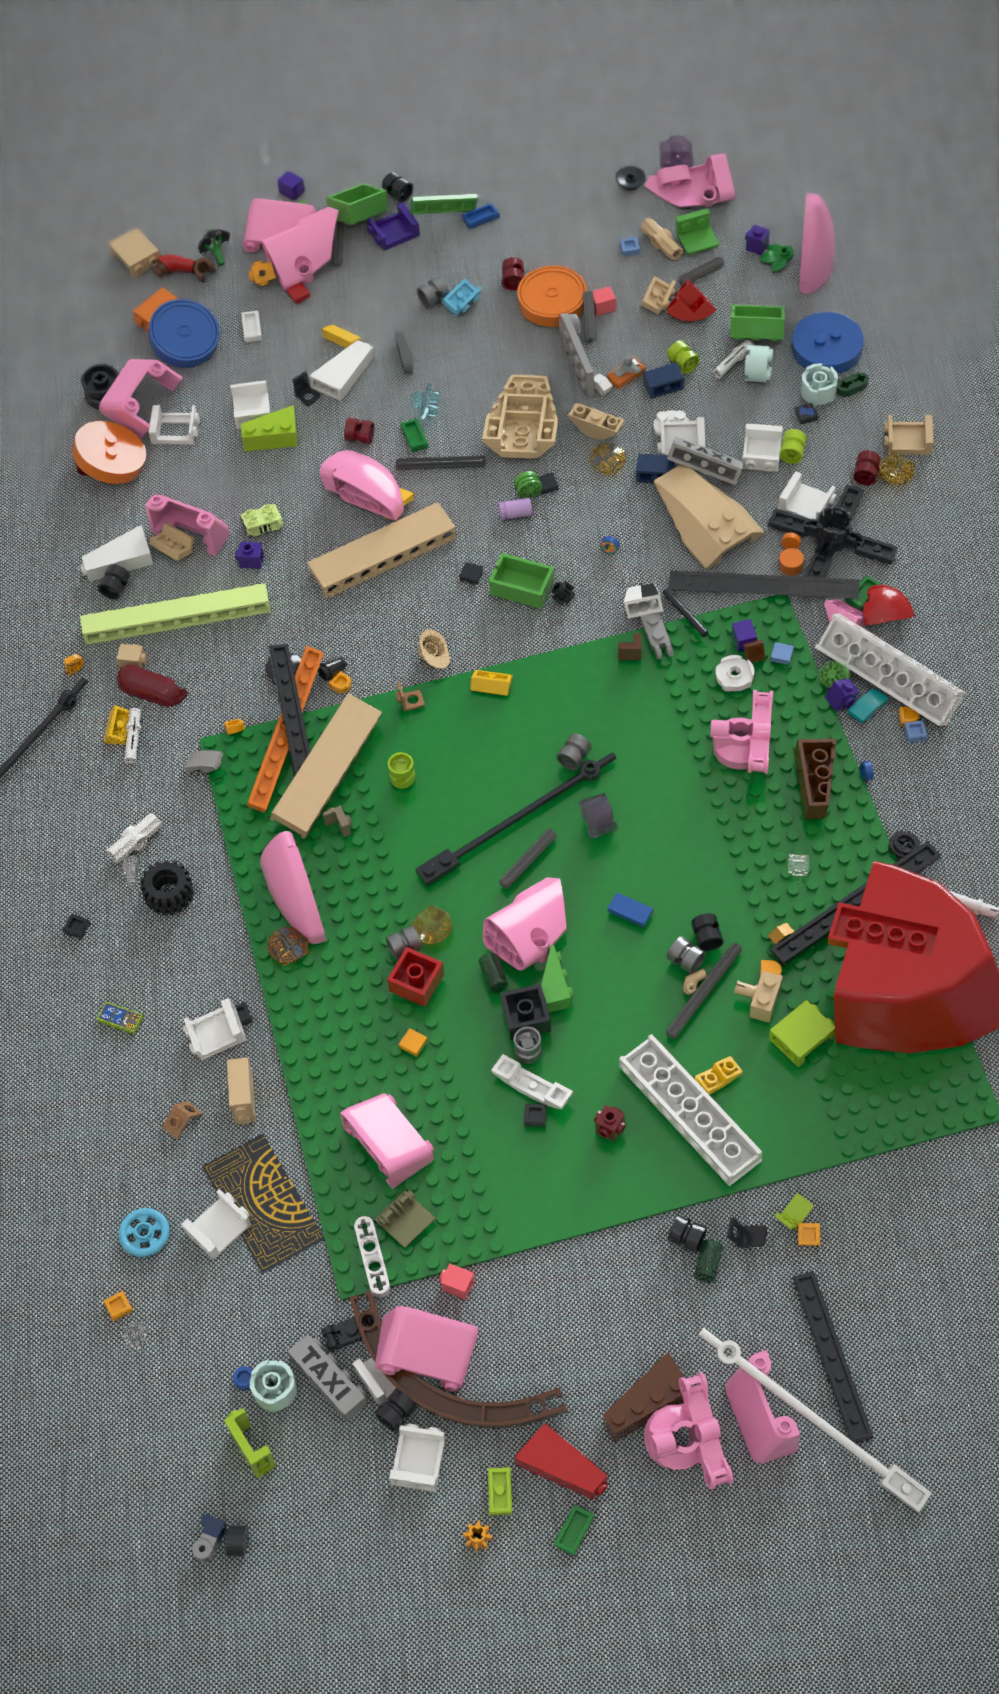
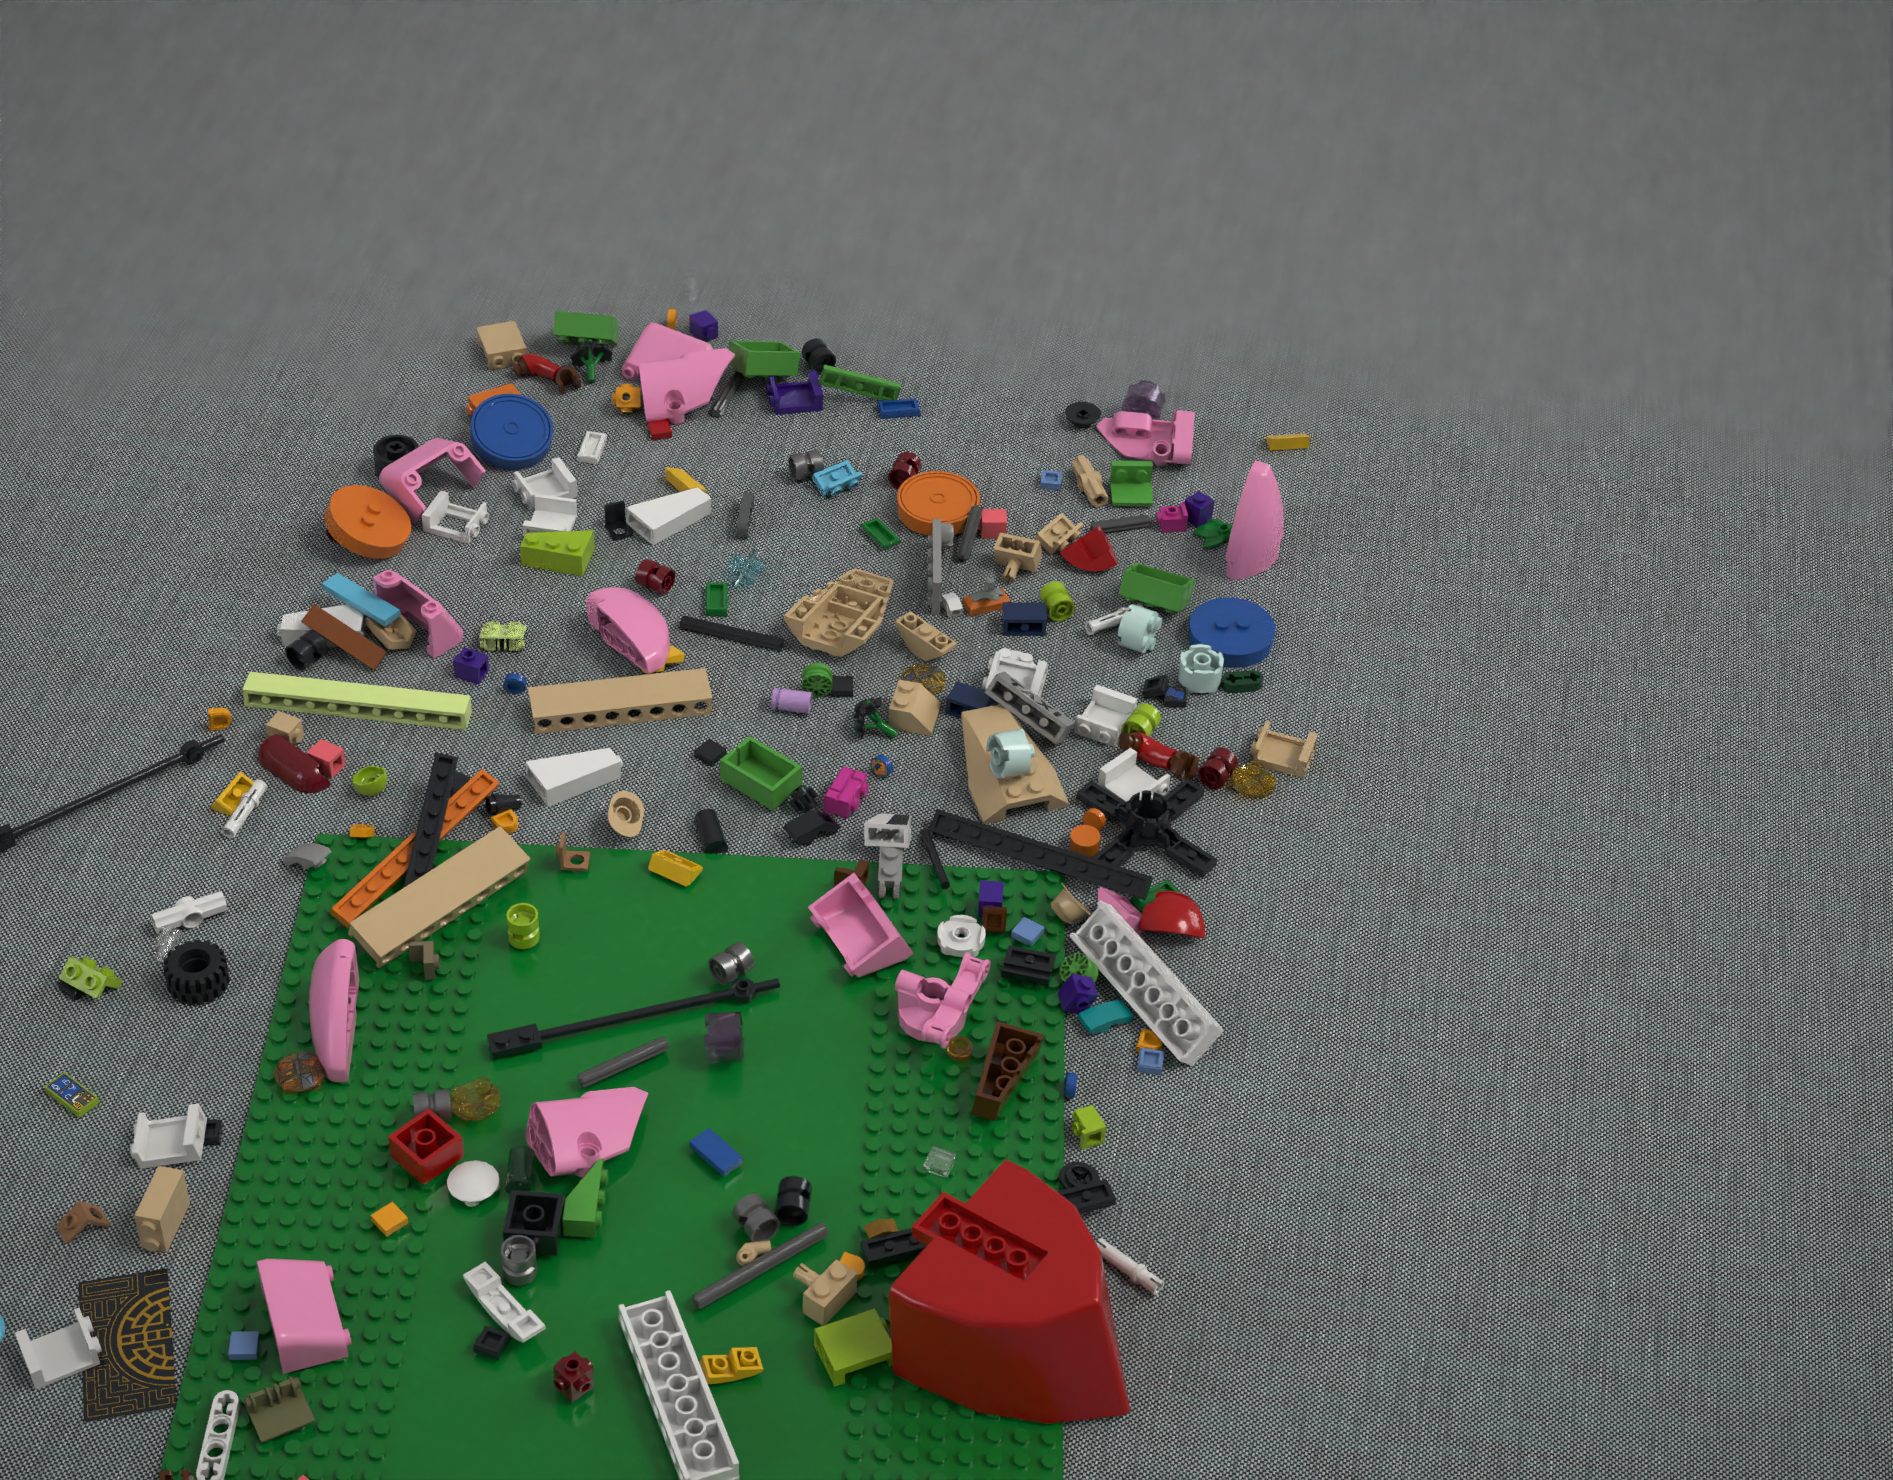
camera: 10 degrees right, 15 degrees down
(85, 917) = (88, 977): none -> lime bracket
(138, 524) = (361, 599): none -> medium azure tile
(140, 562) = (344, 637): none -> dark orange tile
(177, 670) = (329, 757): none -> coral brick
(199, 218) = (583, 326): none -> bright green piece
(220, 681) = (370, 780): none -> lime hair
(234, 370) = (554, 482): none -> white panel
(262, 187) = (672, 319): none -> light orange tile
(292, 560) = (514, 683): none -> blue tile
(354, 1177) = (244, 1345): none -> medium blue tile
(374, 626) = (572, 774): none -> white slope
(461, 992) = (473, 1182): none -> white dish
(503, 643) = (710, 832): none -> black brick
(517, 336) = (880, 533): none -> green tile
(577, 615) = (806, 827): none -> black slope
(584, 499) = (869, 708): none -> black plant
(592, 576) = (845, 792): none -> dark pink brick
(612, 487) = (913, 709): none -> tan slope
(634, 324) = (1016, 554): none -> tan brick
(657, 692) = (859, 928): none -> bright pink windscreen
(714, 509) = (1010, 753): none -> light aqua brick
(740, 253) = (1172, 518): none -> dark pink brick
(775, 767) = (960, 1048): none -> clear orange tile
(789, 410) = (1155, 686): none -> black tile
(795, 682) = (1028, 965): none -> black plate
(800, 154) = (1288, 441): none -> yellow slope
(805, 623) = (1069, 908): none -> tan piece
(813, 469) = (1155, 753): none -> piece
(894, 800) = (1088, 1127): none -> lime brick

